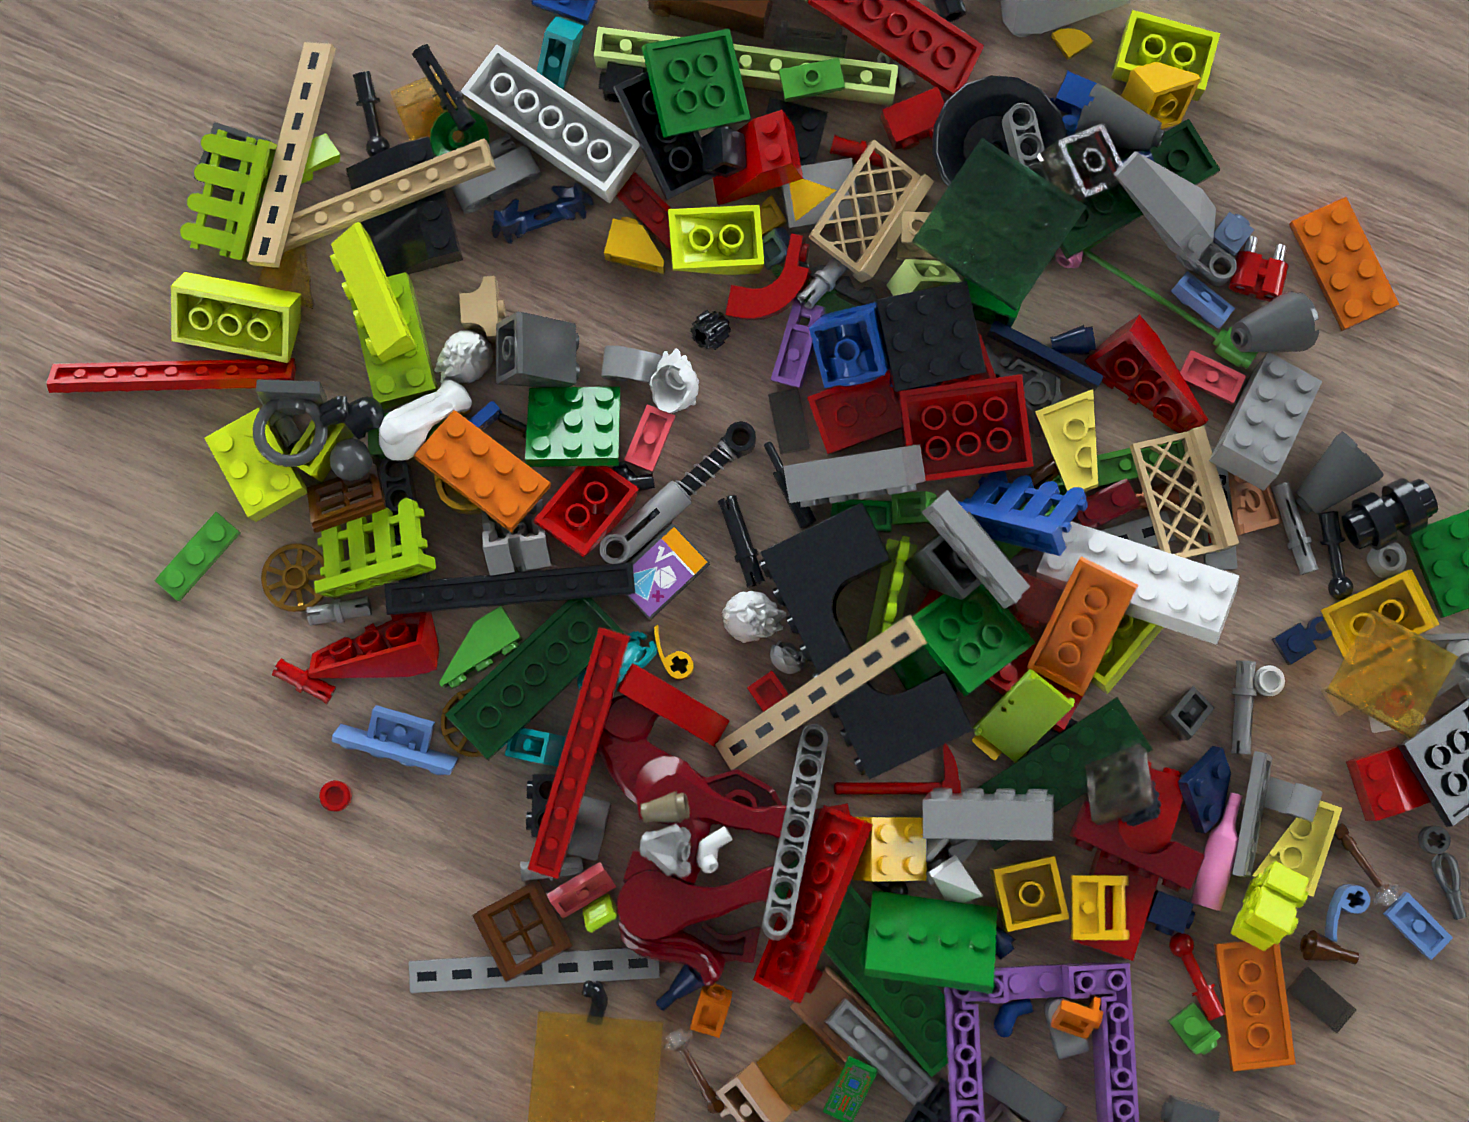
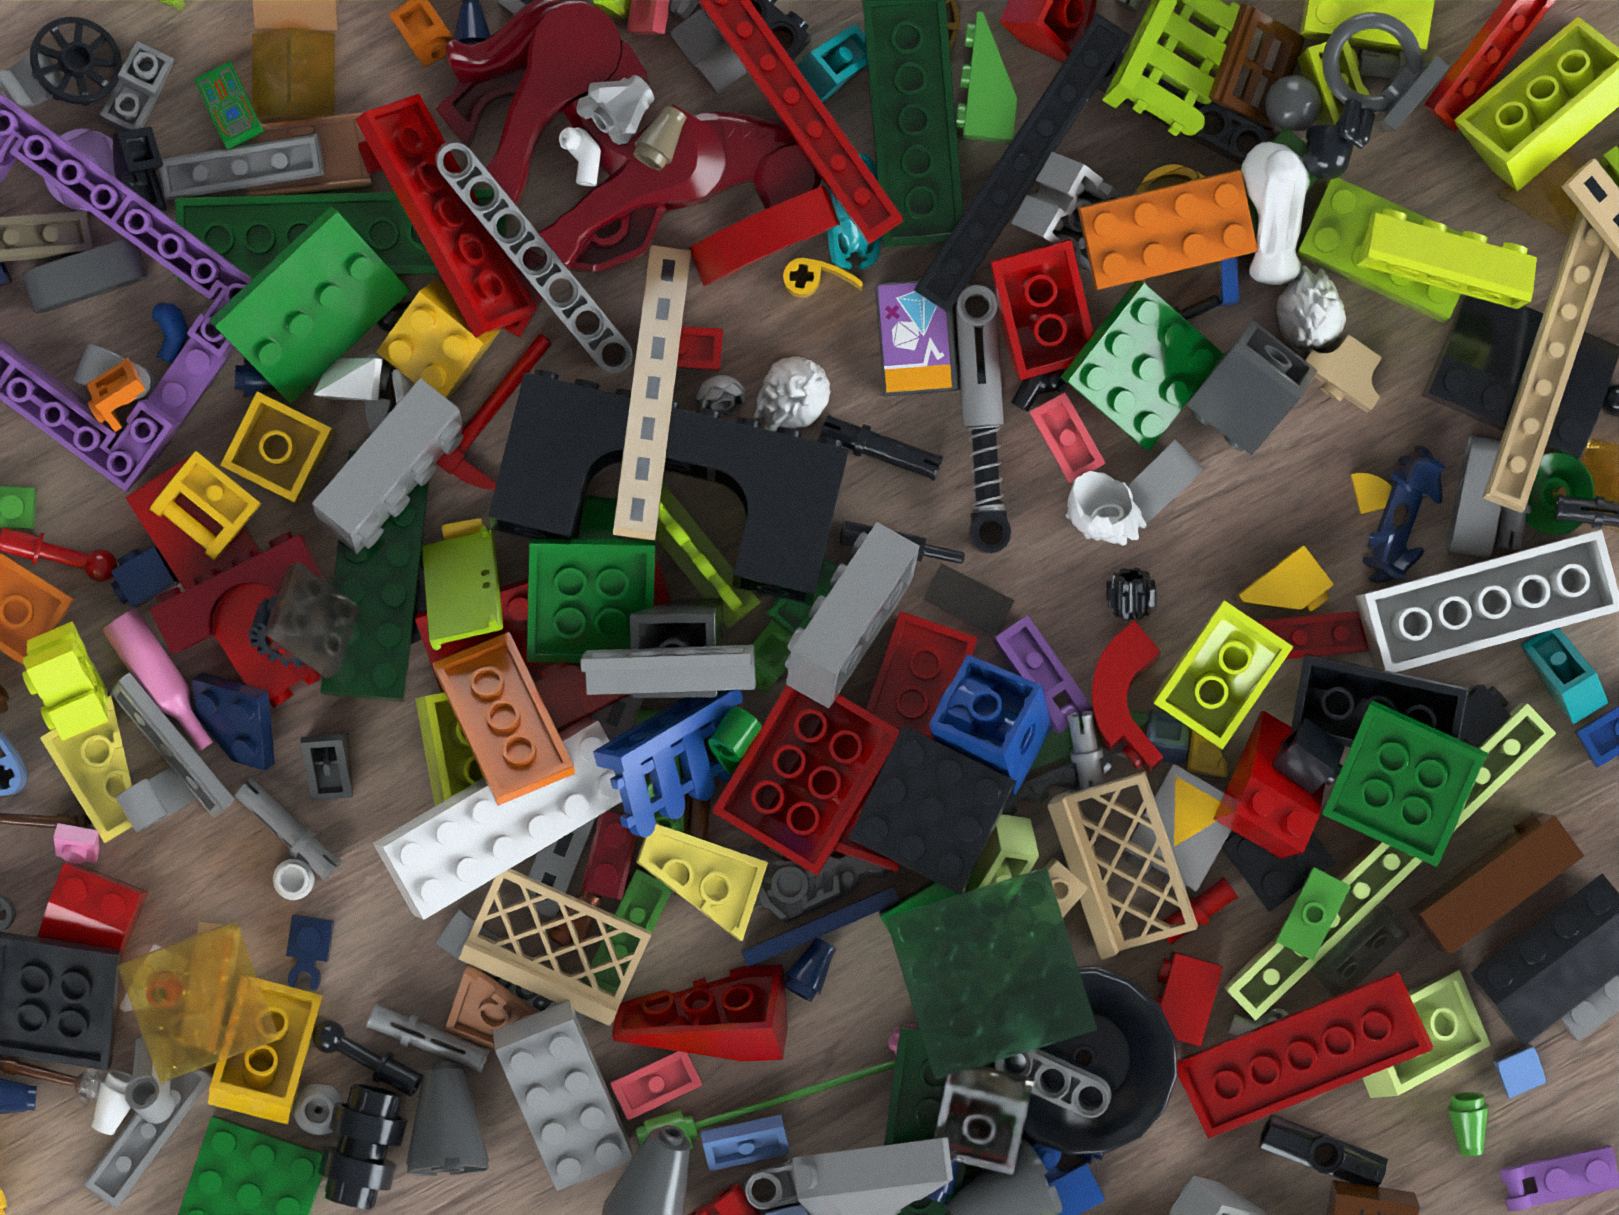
camera: 125 degrees right, 5 degrees up
(542, 243) = (1370, 492): none -> yellow tile
(980, 486) = (733, 738): none -> green panel
(1356, 824) = (76, 844): none -> bright pink plate

